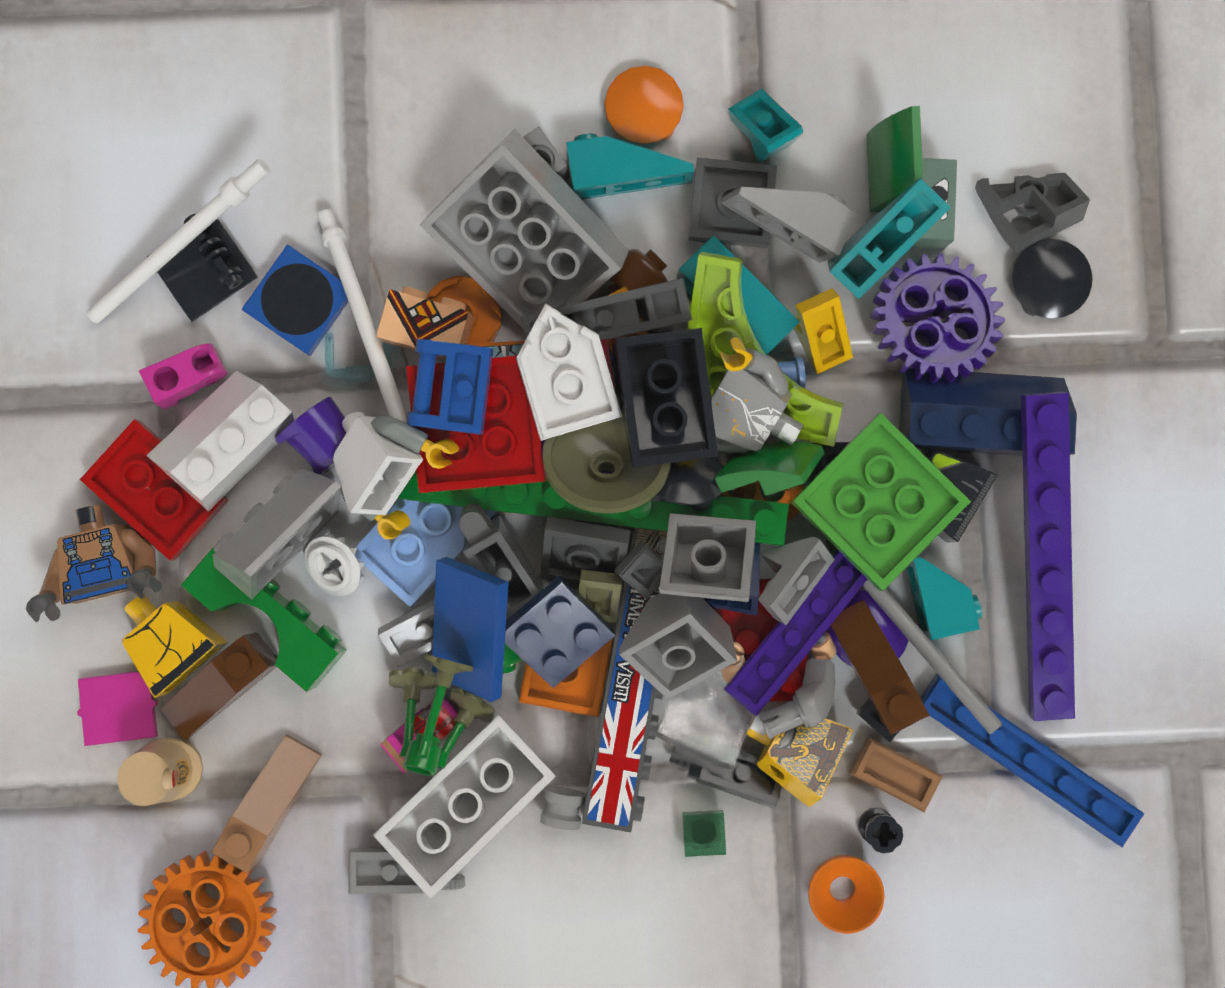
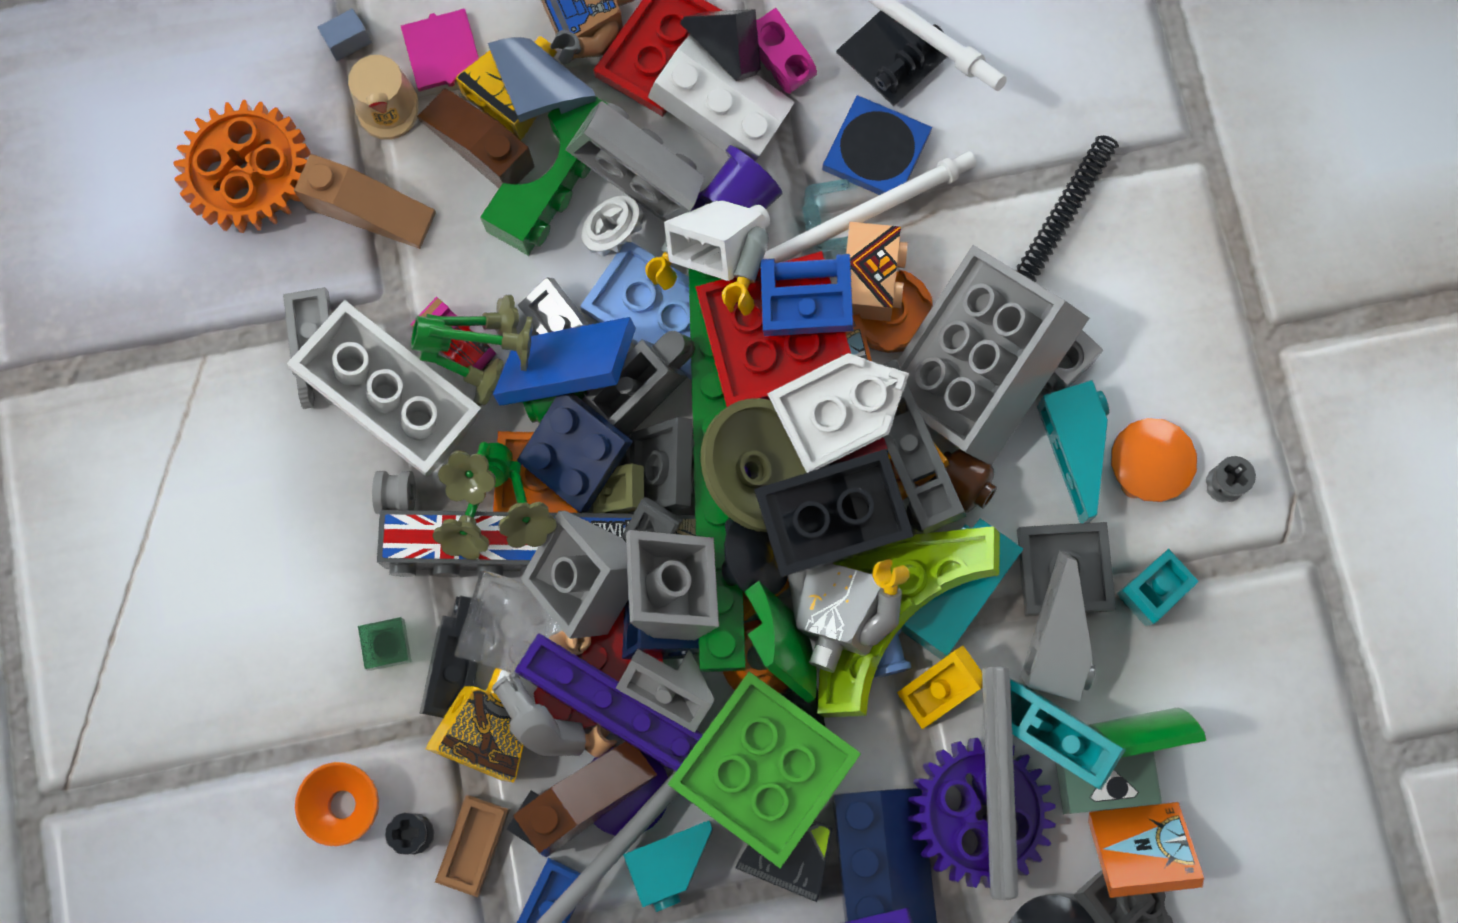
camera: 85 degrees right, 10 degrees down
(83, 803) = (344, 34): none -> sand blue slope
(162, 422) = (728, 38): none -> black slope
(174, 617) = (536, 79): none -> sand blue slope
(350, 95) = (1046, 249): none -> black piece
(580, 732) = (470, 479): none -> olive plant
(679, 28) = (1242, 483): none -> dark grey bush
(921, 295) = (1000, 783): none -> light grey axle
(994, 182) = (1145, 850): none -> orange tile

